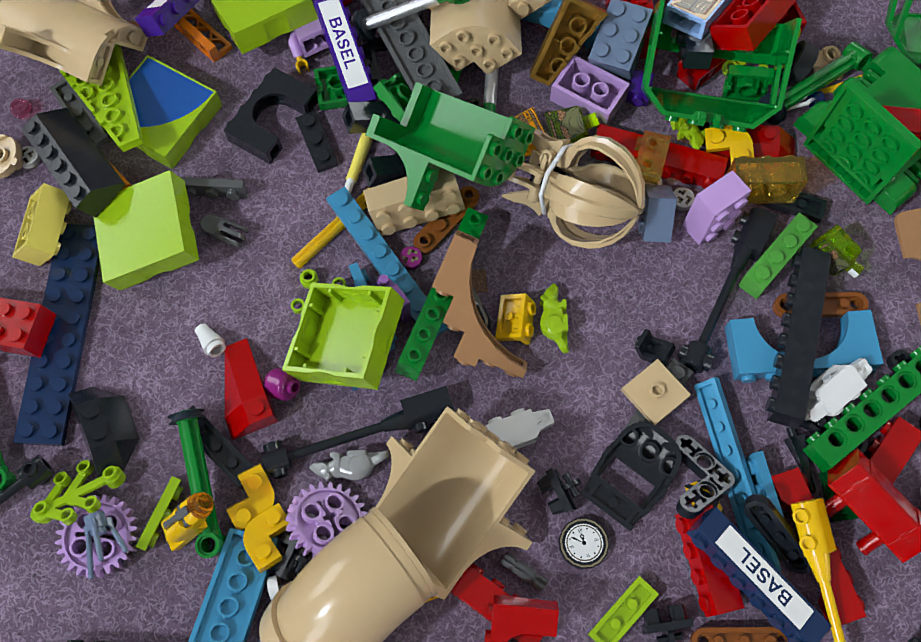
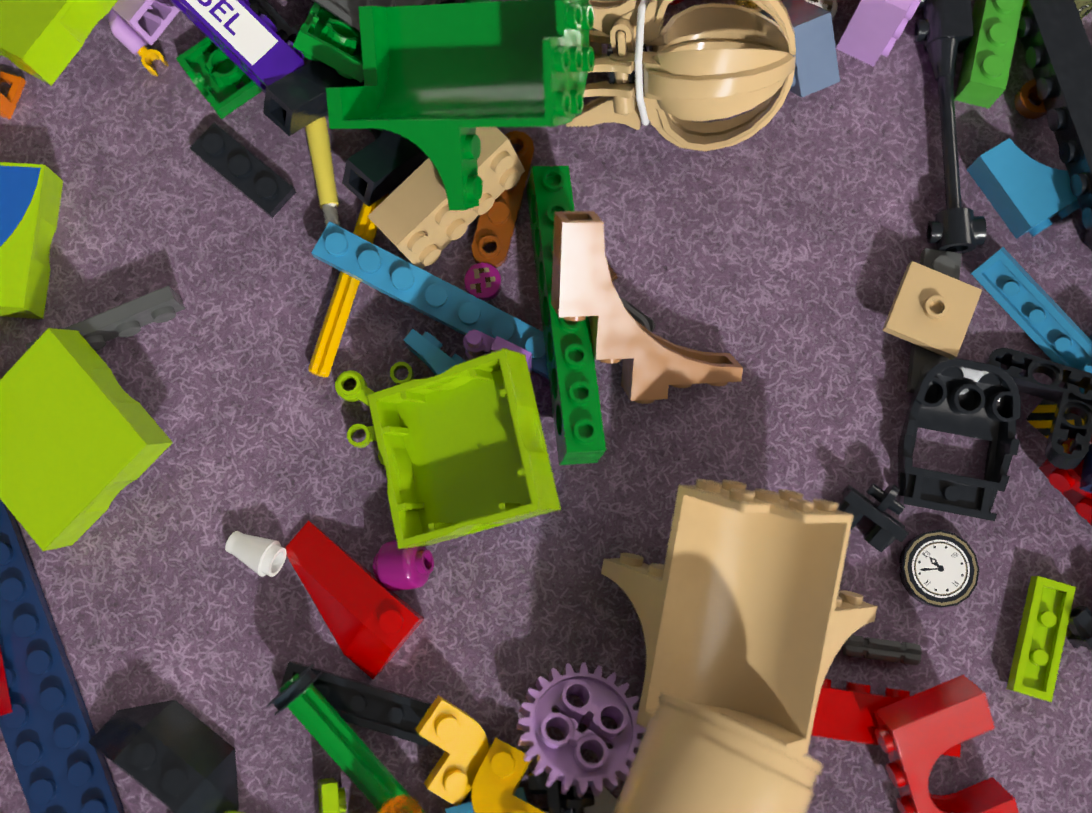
camera: 30 degrees left, 10 degrees up
(220, 227) = (171, 375): dark grey arm -> none
(275, 89) = (133, 118): black arch -> none
(353, 467) = (573, 630): light grey animal -> none
(415, 414) = (617, 510): black bar -> none
(515, 318) = (681, 298): yellow bracket -> none
(521, 427) = (774, 453): white hinge -> none
(553, 319) = (737, 277): lime animal -> none
(653, 348) = (894, 247): black bracket -> none

